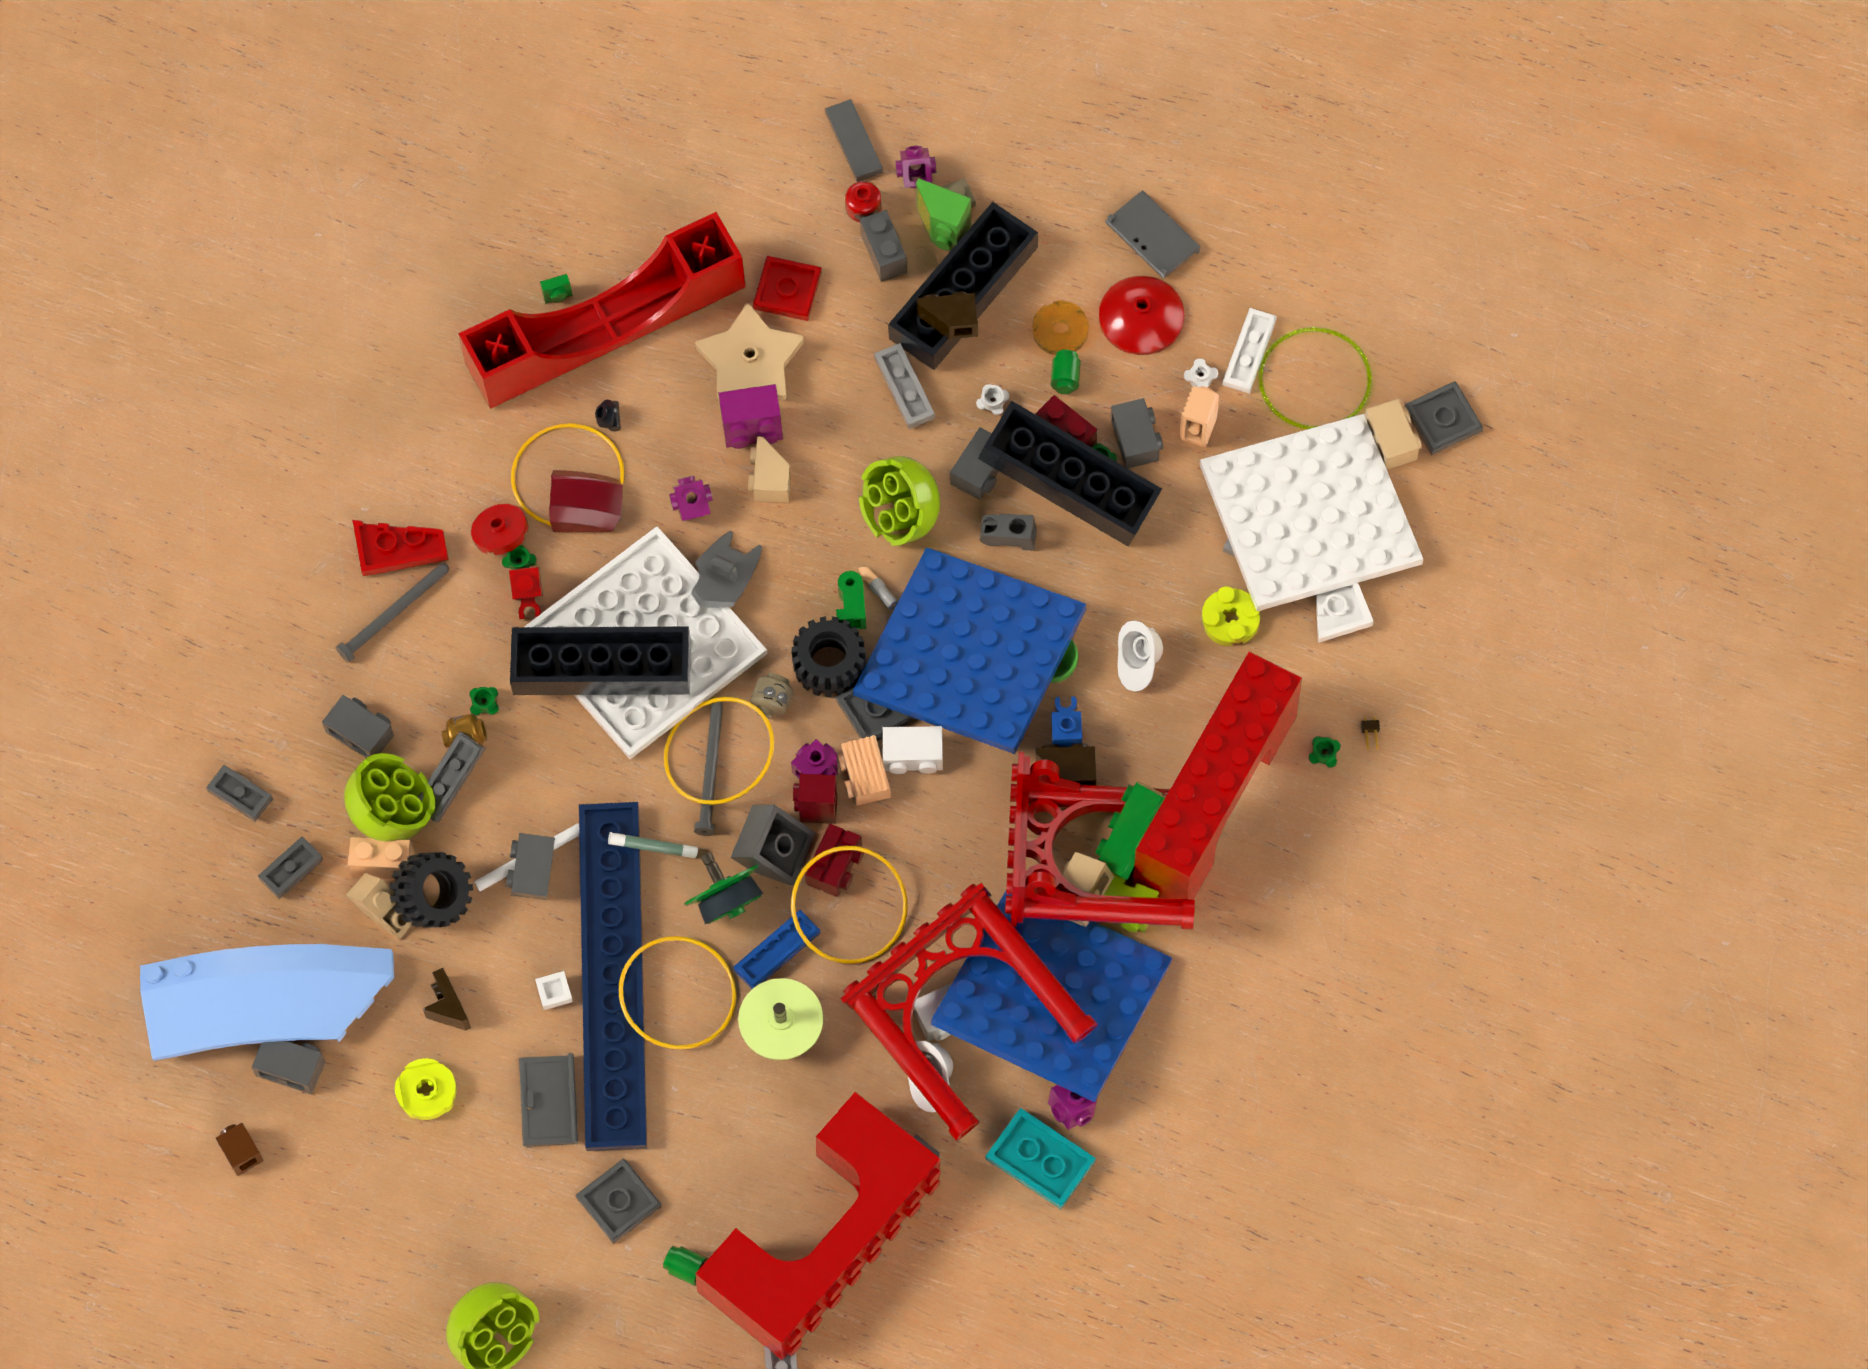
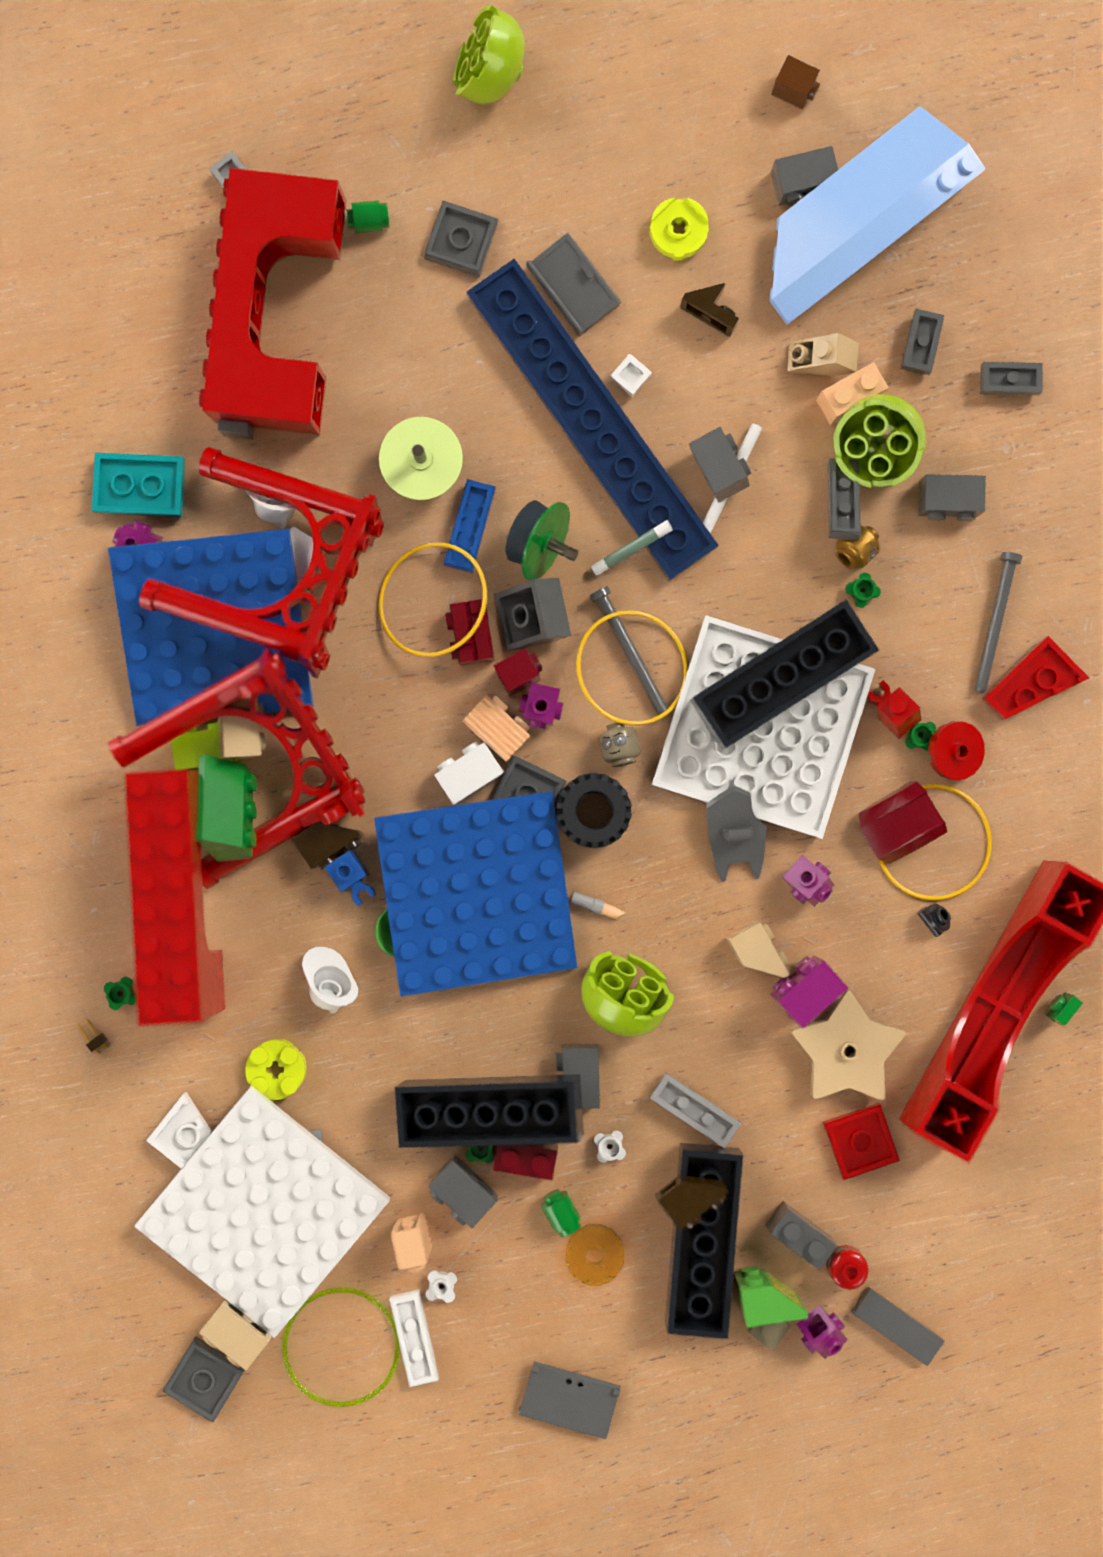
camera: 150 degrees right, 20 degrees up
(452, 886) = (768, 380): black tyre -> none
(703, 945) = (582, 436): yellow piece -> none
(852, 594) = (615, 886): green leg -> none
(1009, 530) = (515, 1027): dark grey leg -> none
(1139, 329) = (535, 1294): red dish -> none

